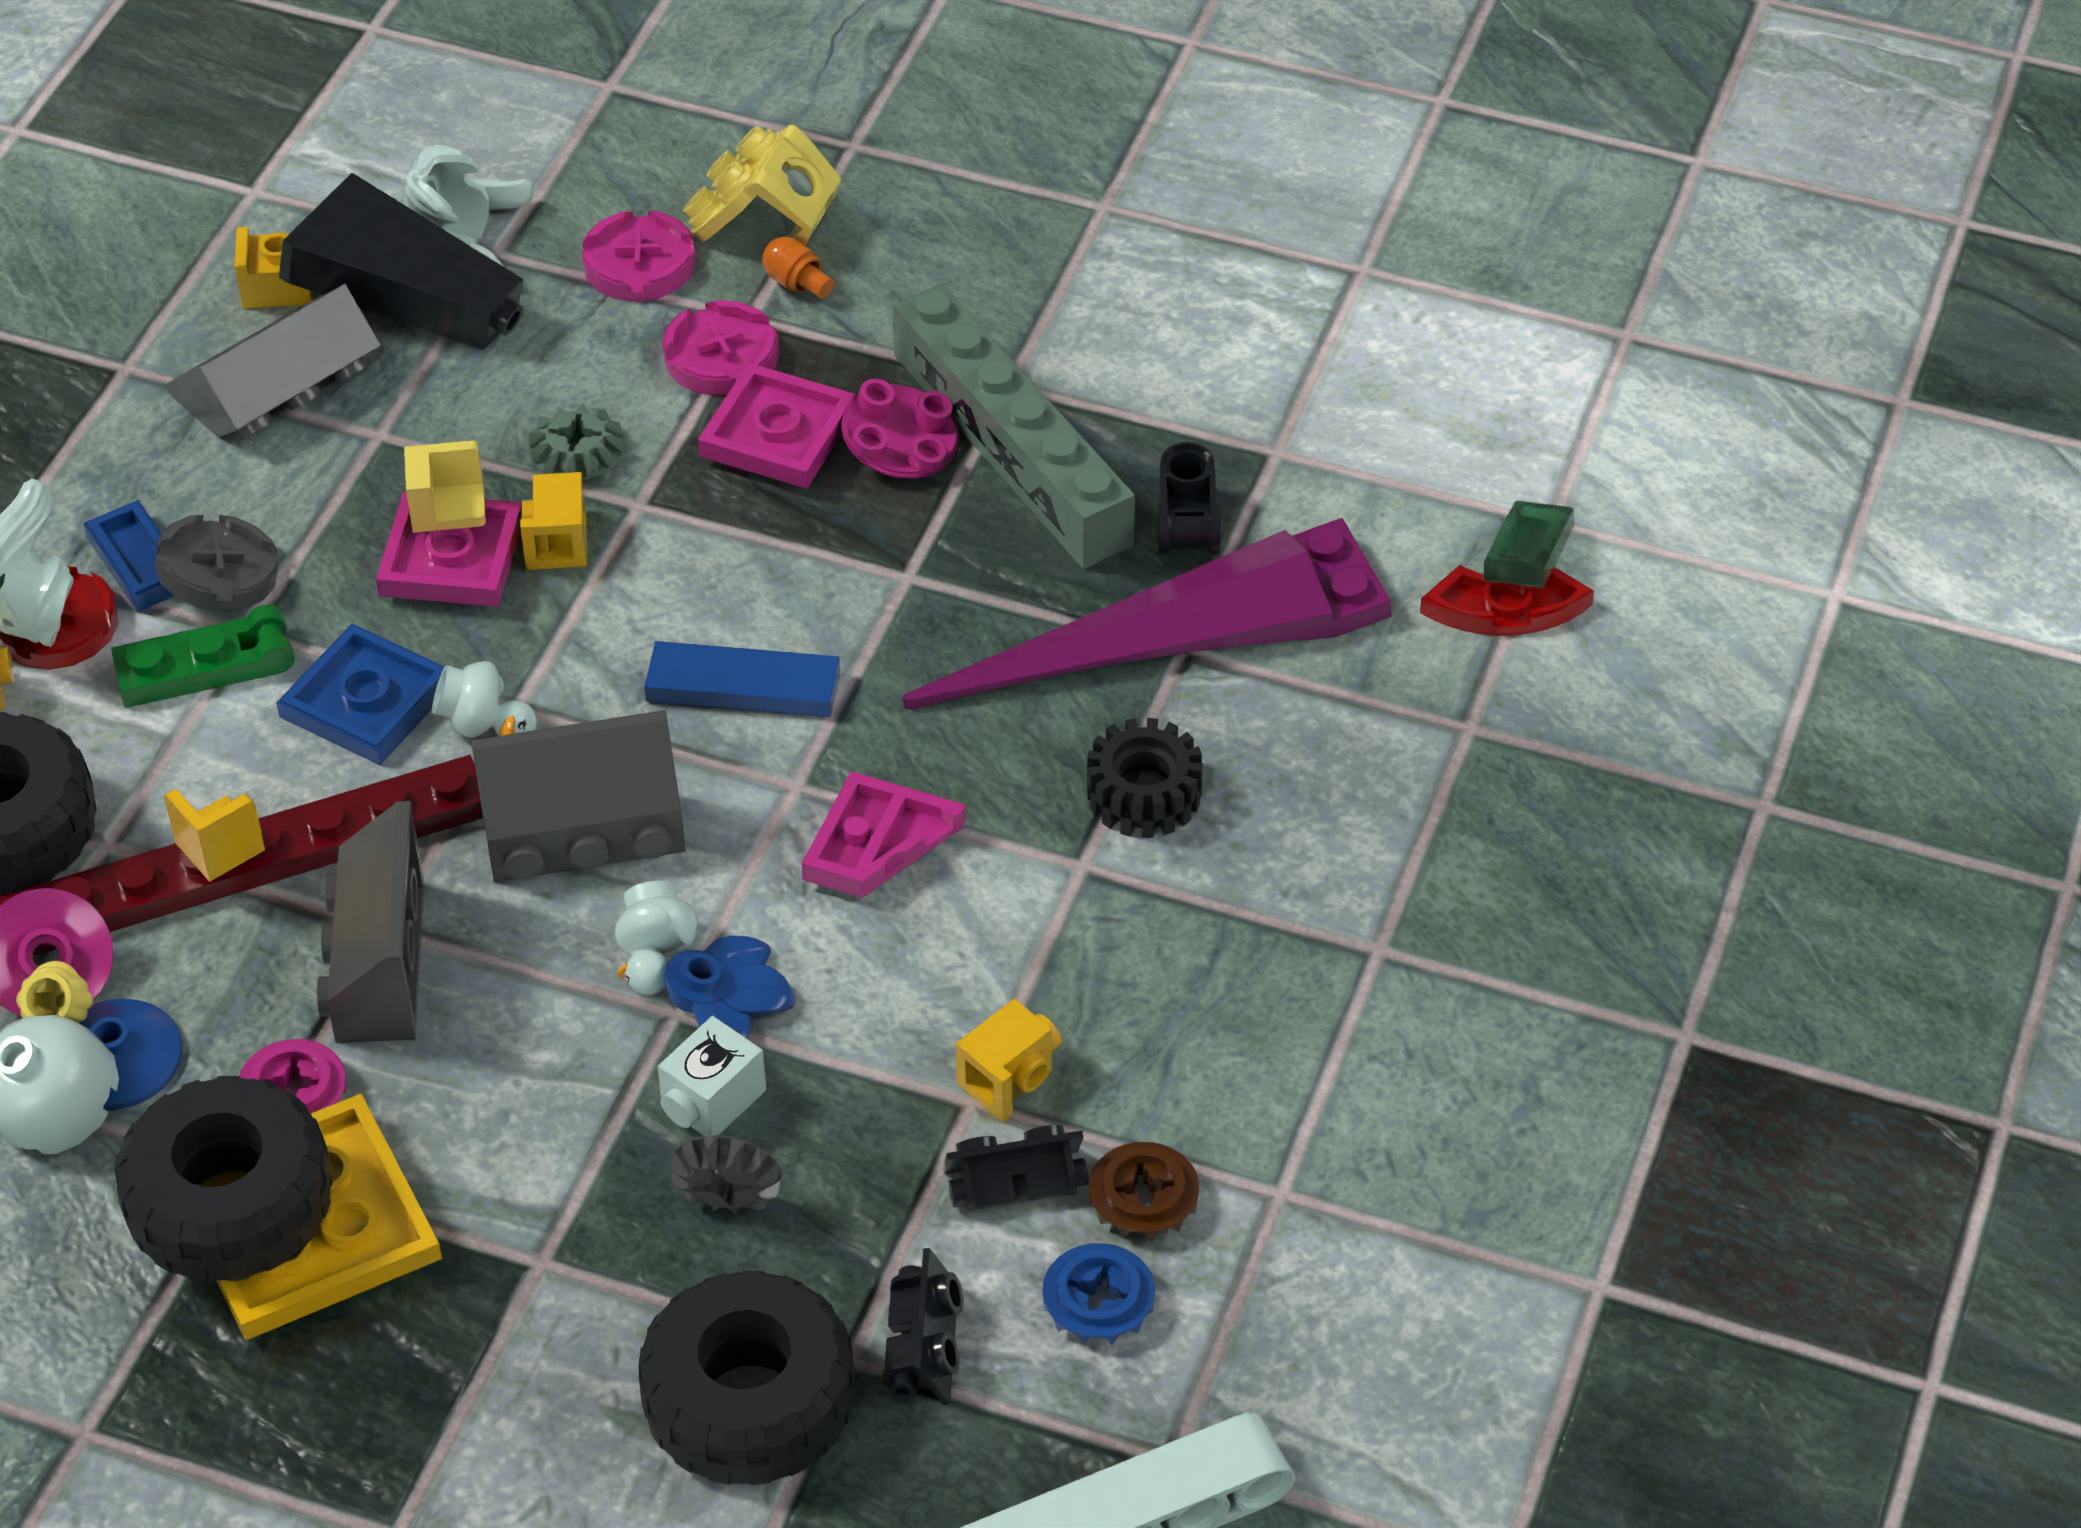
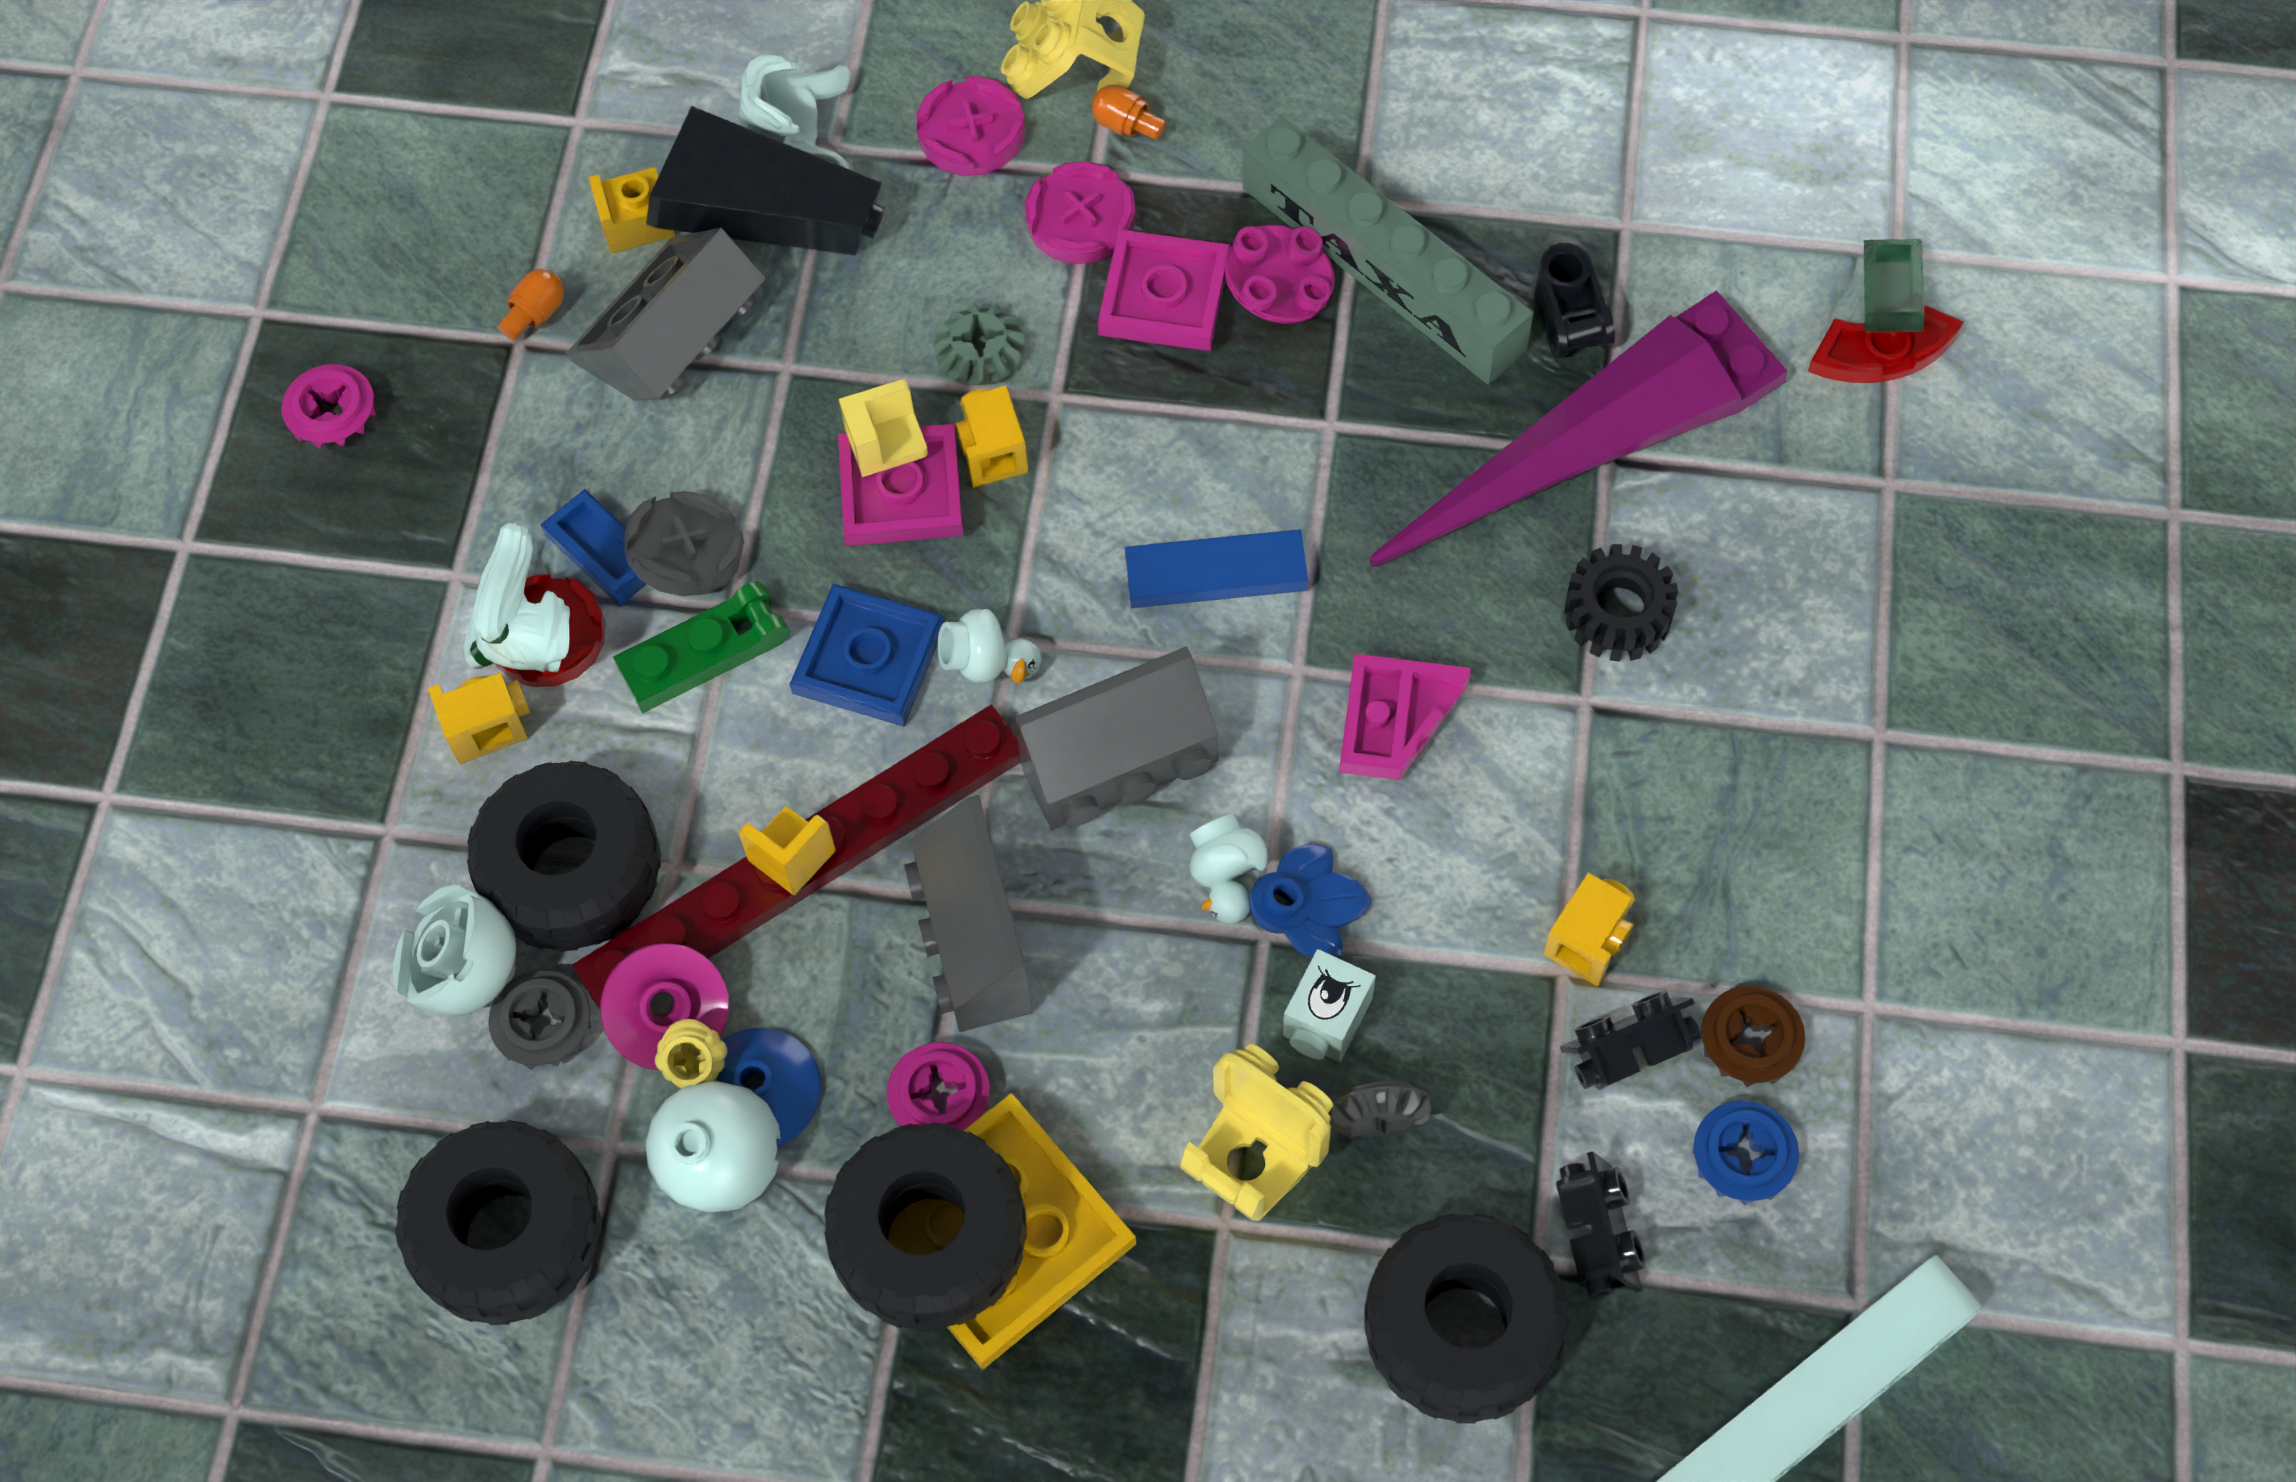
camera: 10 degrees left, 15 degrees up
(147, 332) = (532, 302): none -> orange cylinder
(611, 1156) = (1258, 1108): none -> light yellow piece

